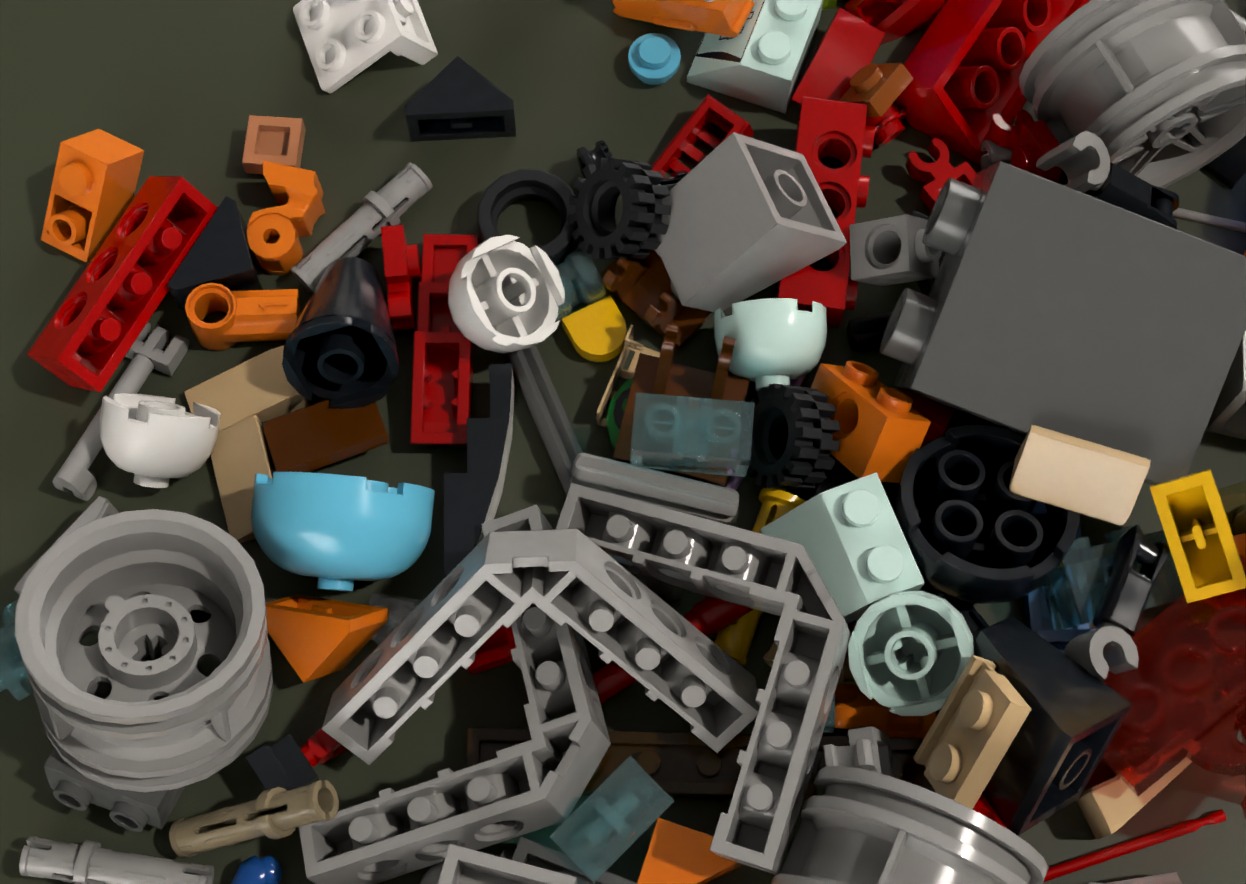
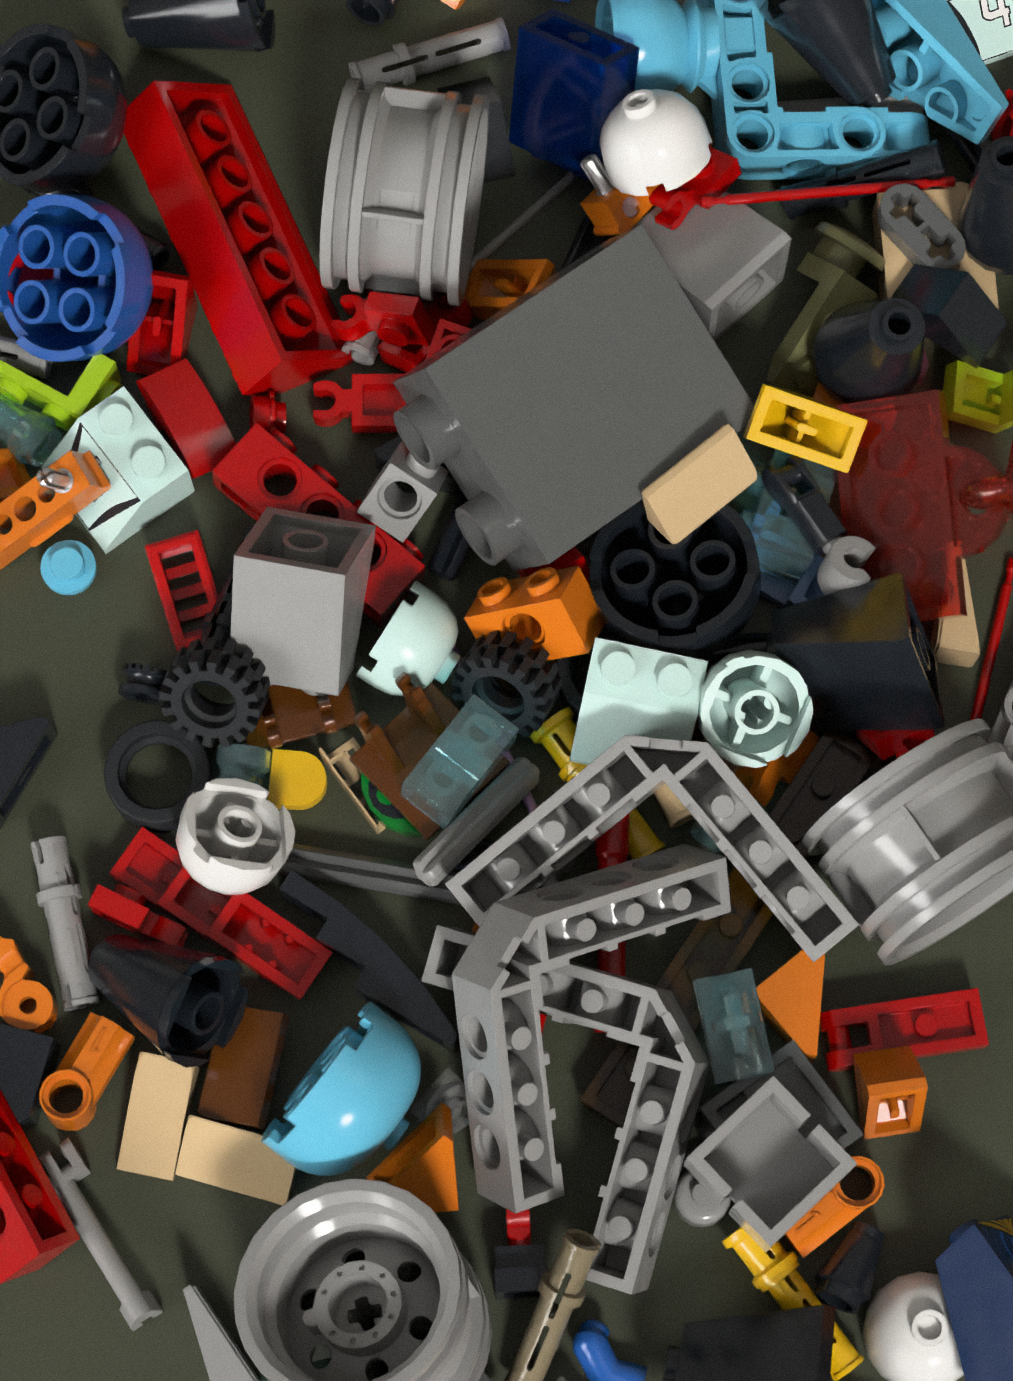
camera: 55 degrees left, 5 degrees up
(157, 436) = (156, 1211): white cylinder -> none
(867, 750) = (809, 800): light grey plate -> none
(877, 86) = (240, 404): dark orange plate -> none
(972, 732) = (850, 707): tan plate -> none
(1090, 172) = (470, 293): piece -> none

